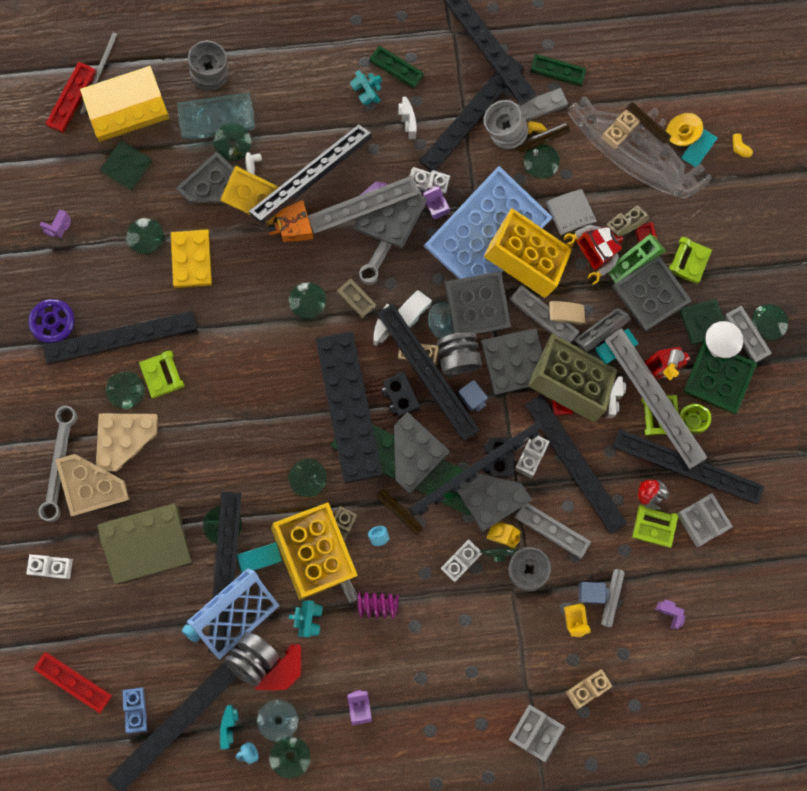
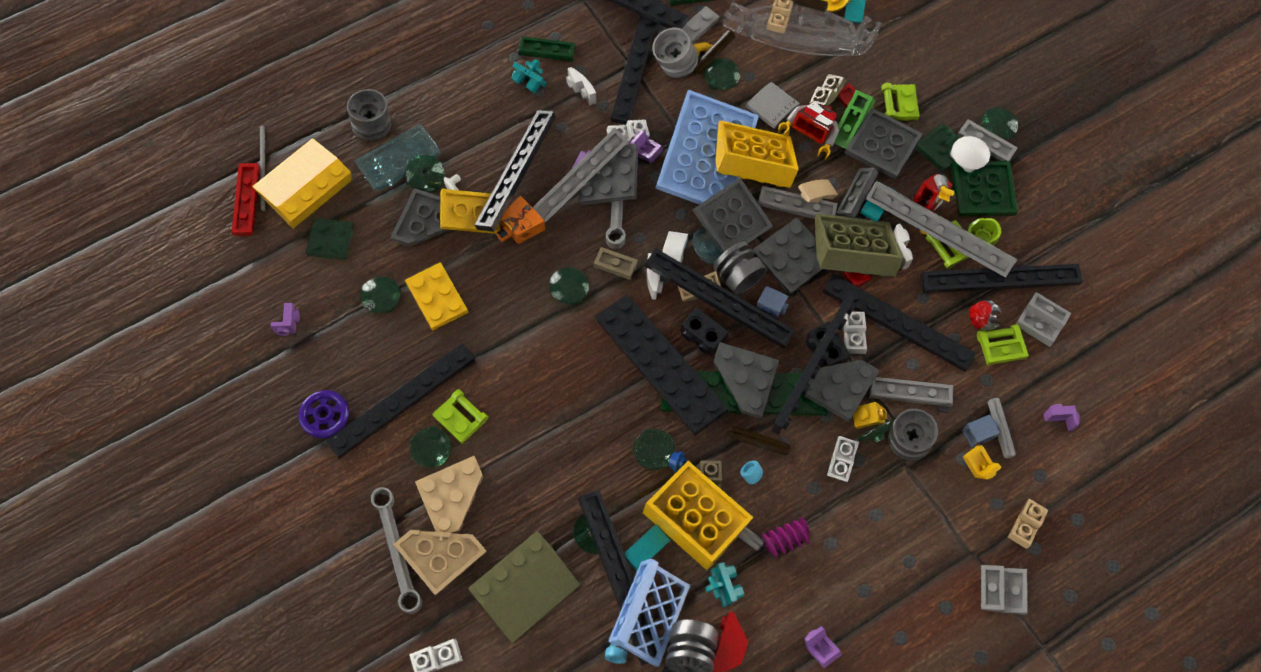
camera: 20 degrees left, 10 degrees down
(321, 497) = (677, 461): none -> blue plate

